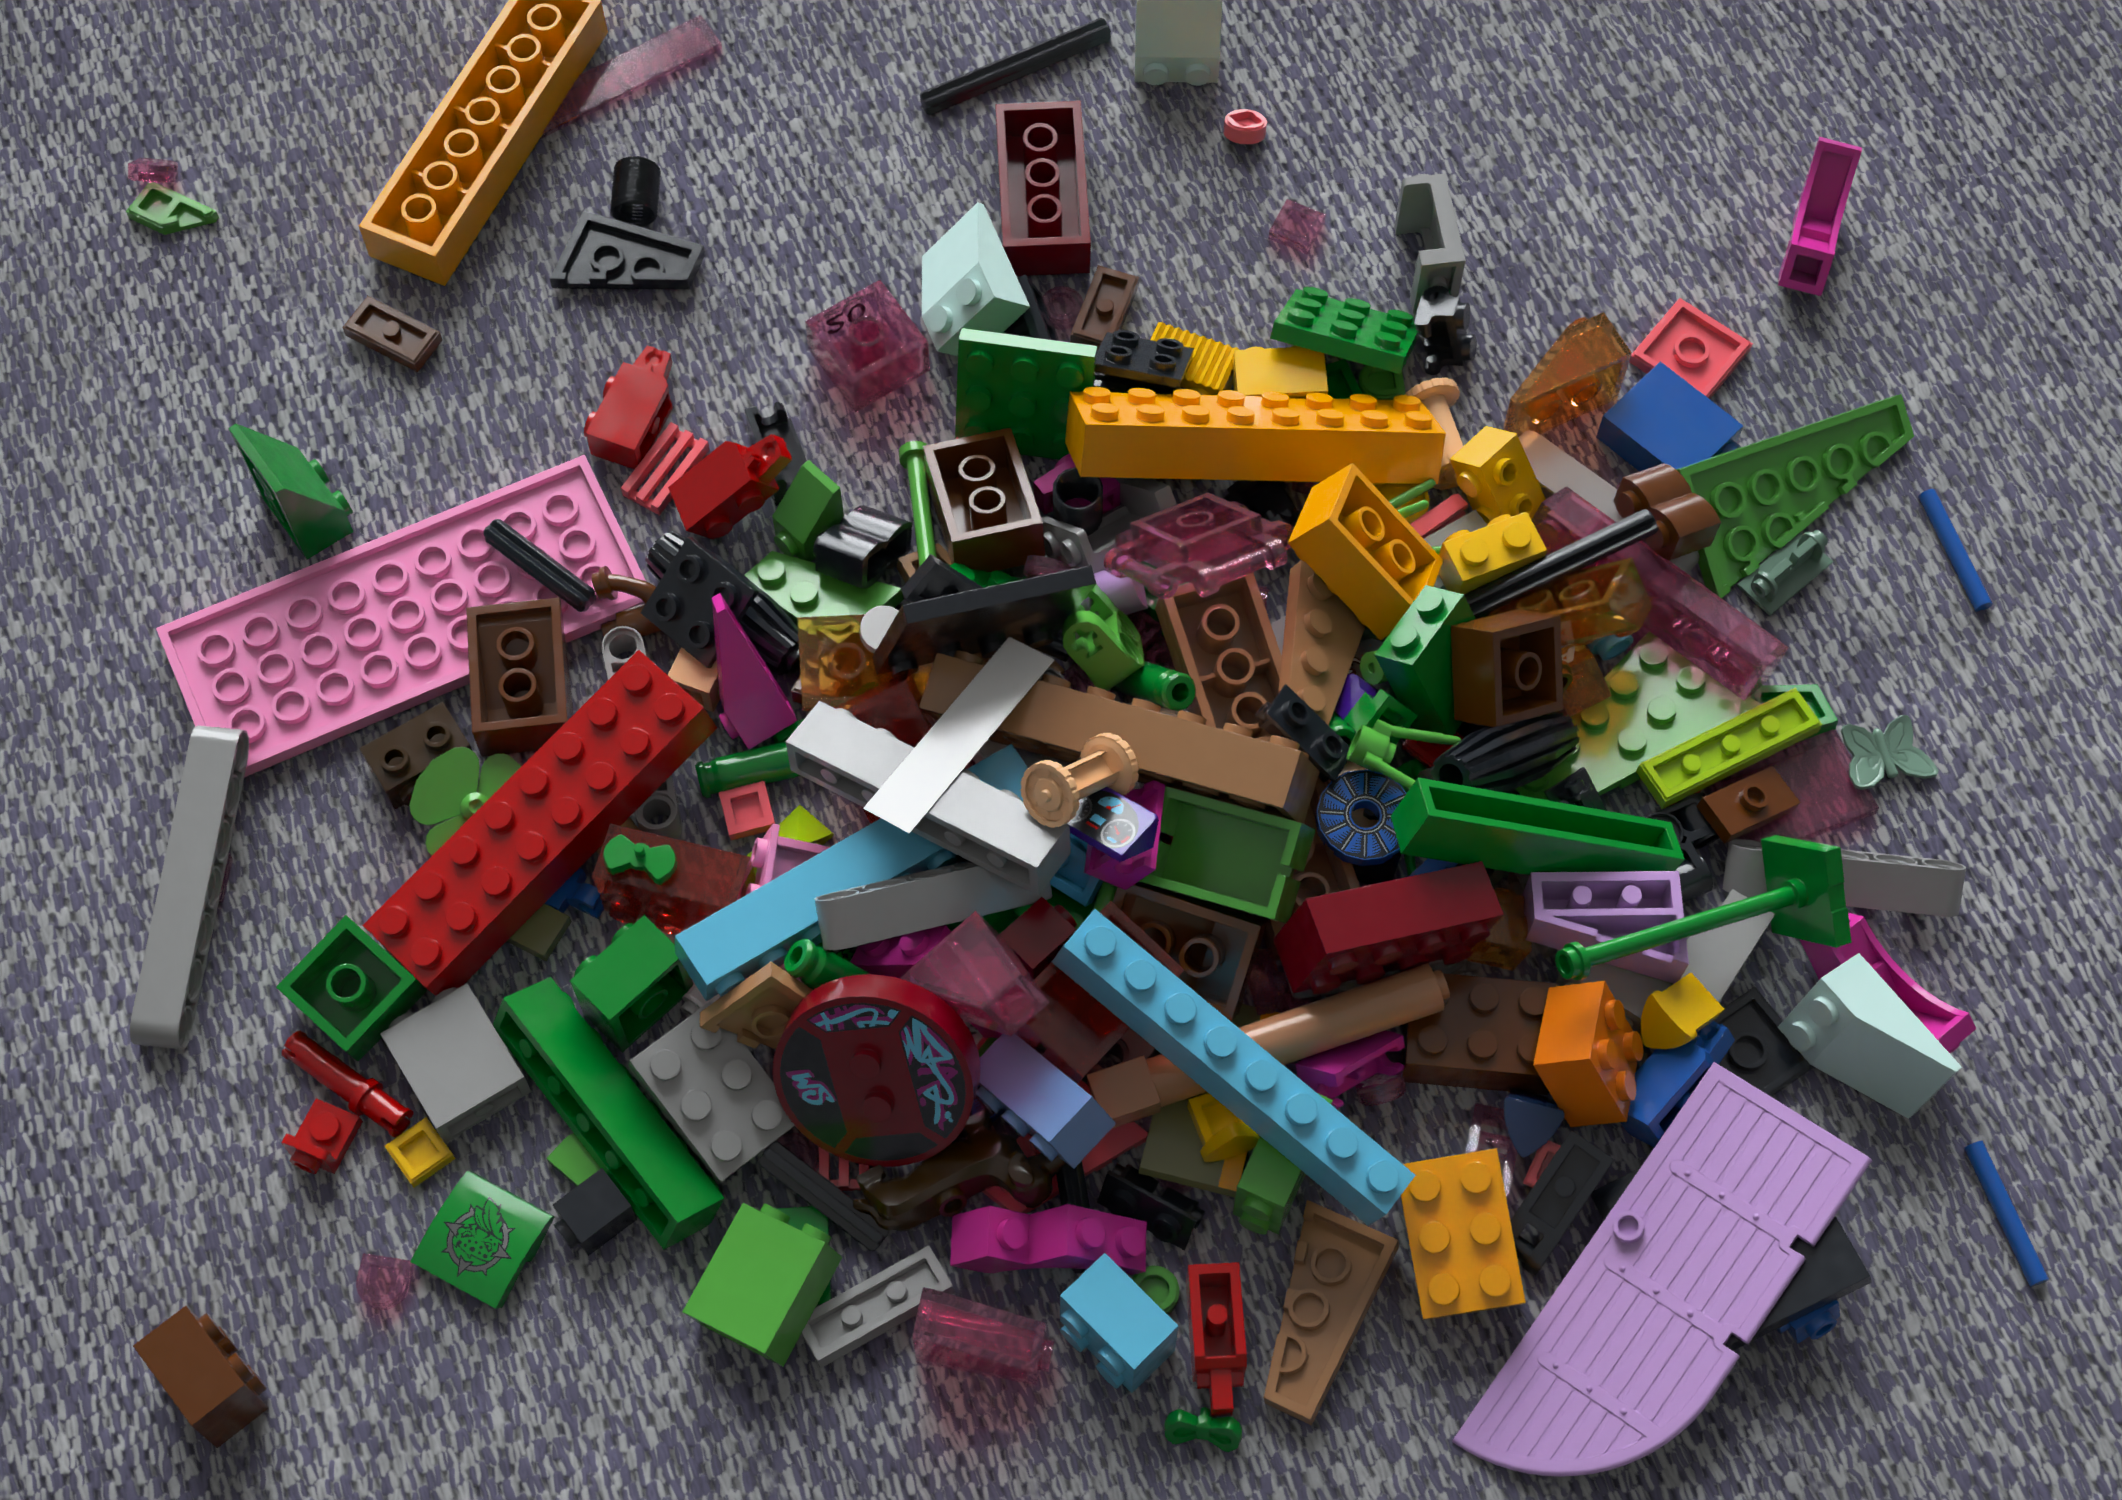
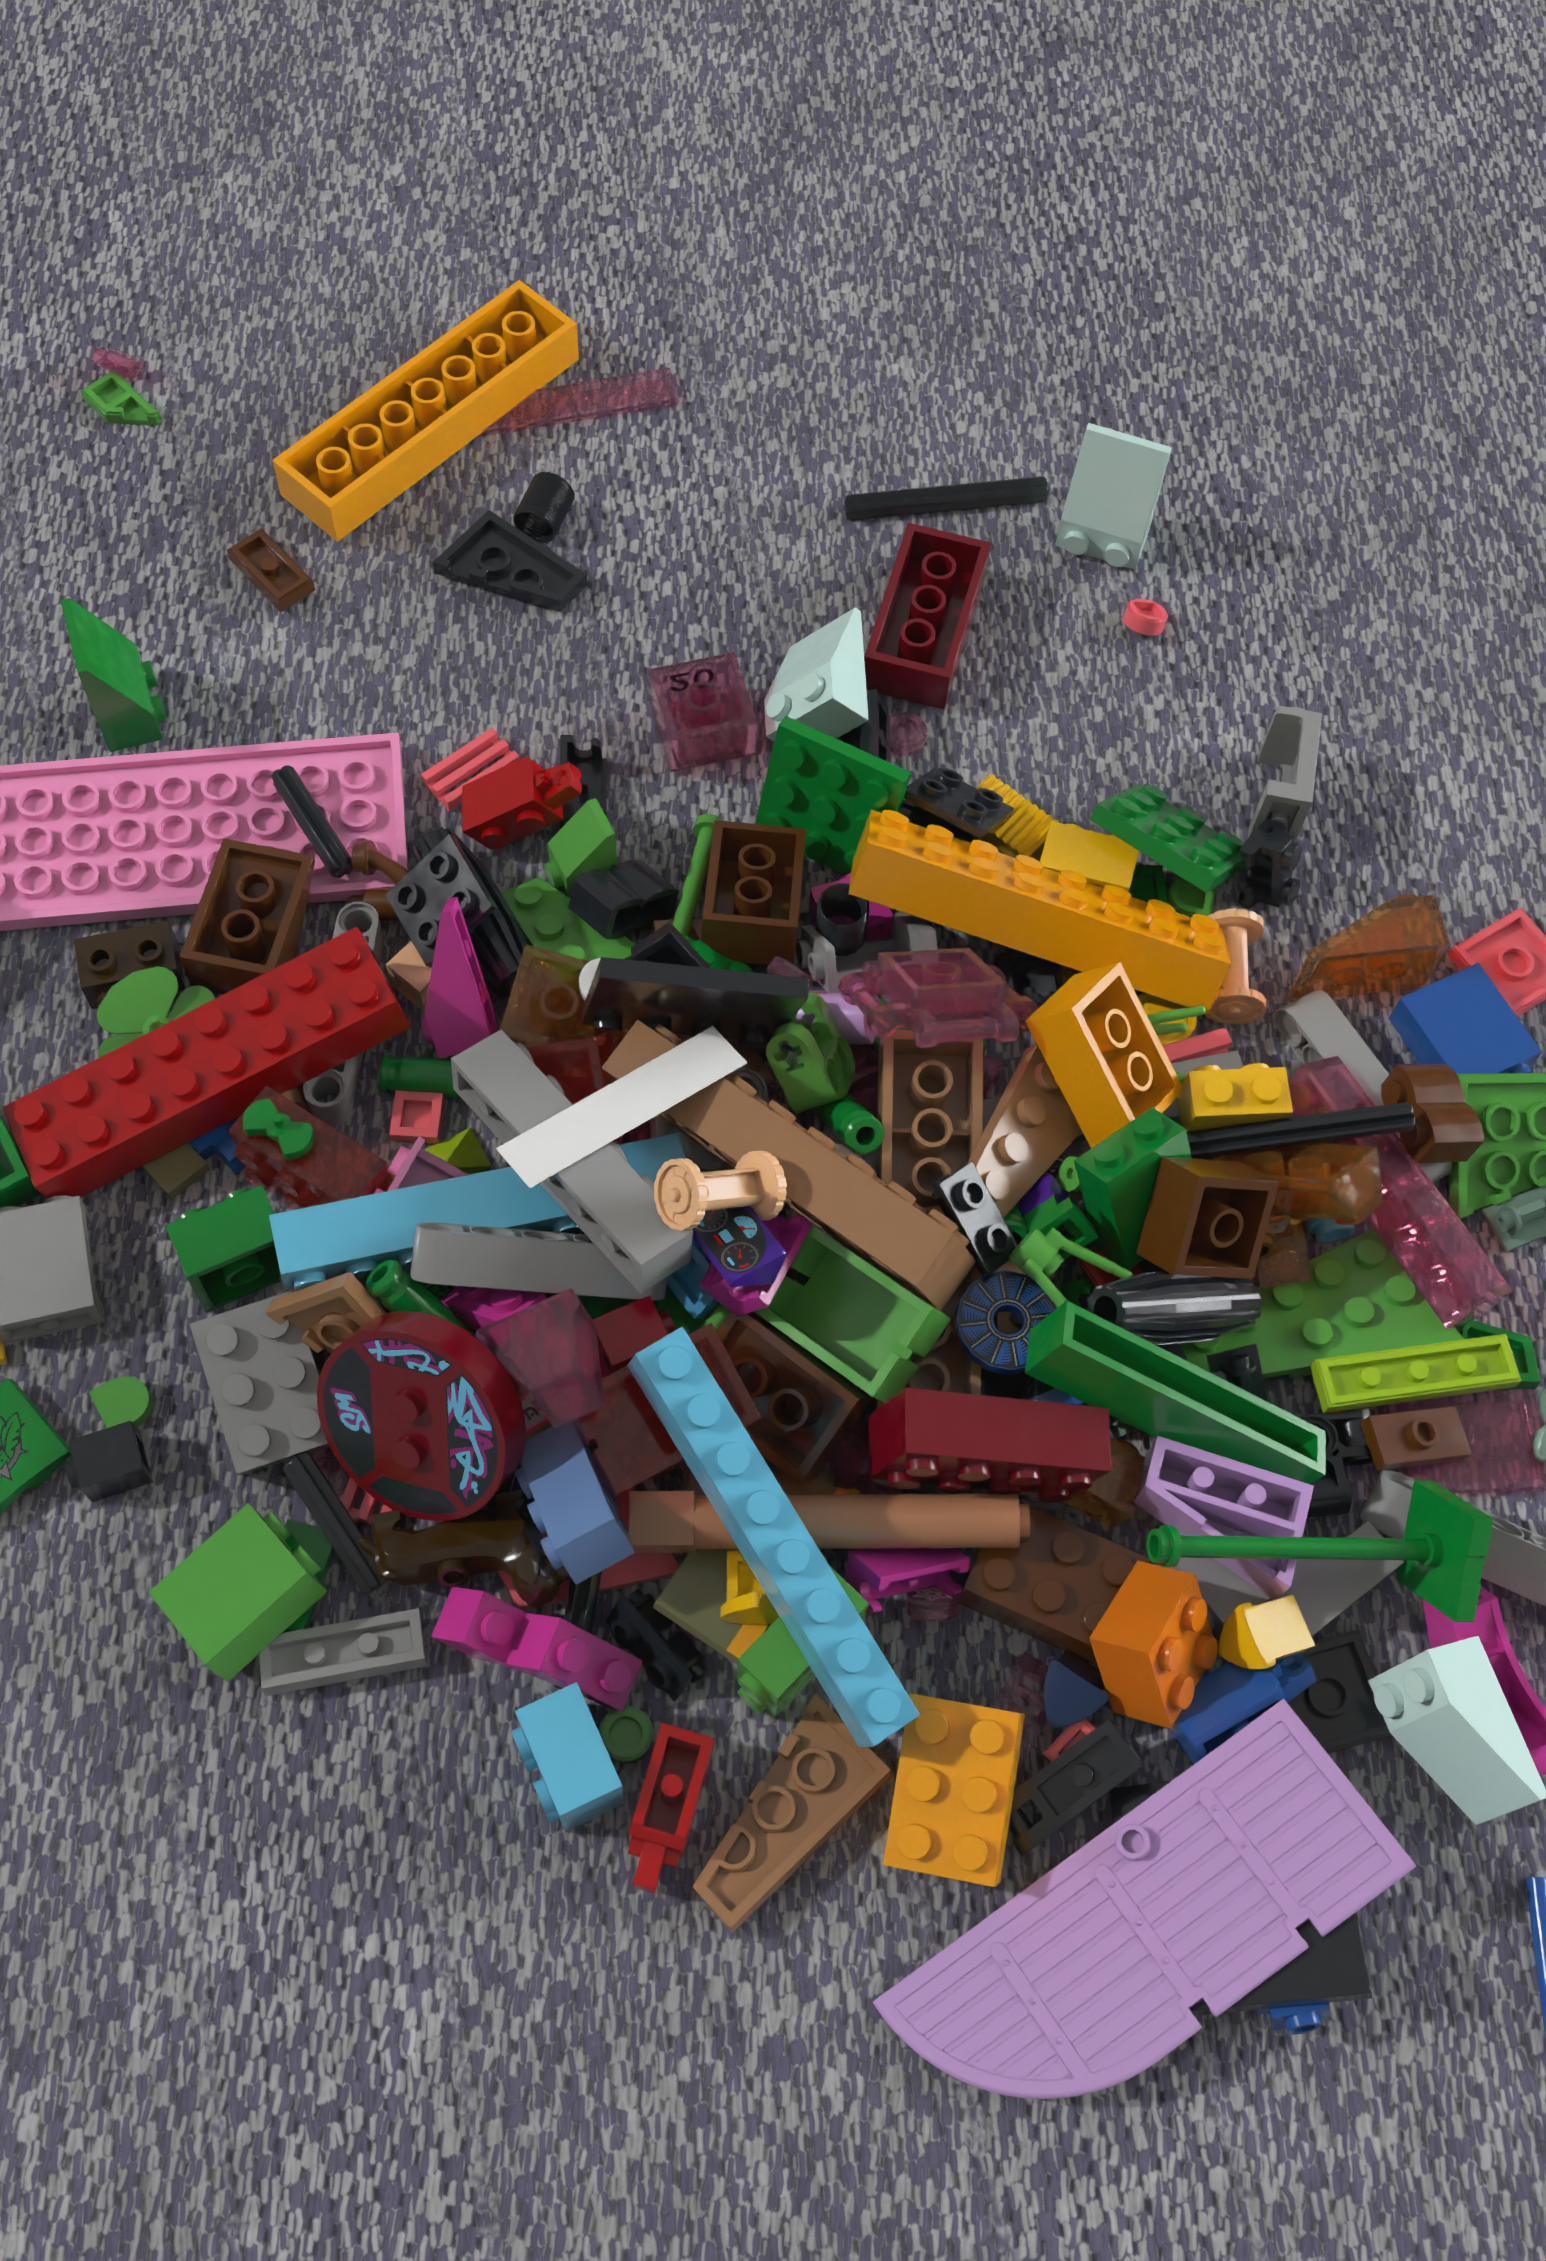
camera: 15 degrees right, 0 degrees up
(608, 1112) = (162, 1368): green brick -> none
(631, 410) = (460, 704): red hinge -> none
(979, 1338) = (428, 1723): clear pink slope -> none
(1104, 306) = (946, 743): reddish brown plate -> none
(1184, 1426) = (639, 1908): green piece -> none
(1297, 226) = (1162, 725): clear pink tile -> none
(1497, 475) = (1271, 1023): yellow brick -> none

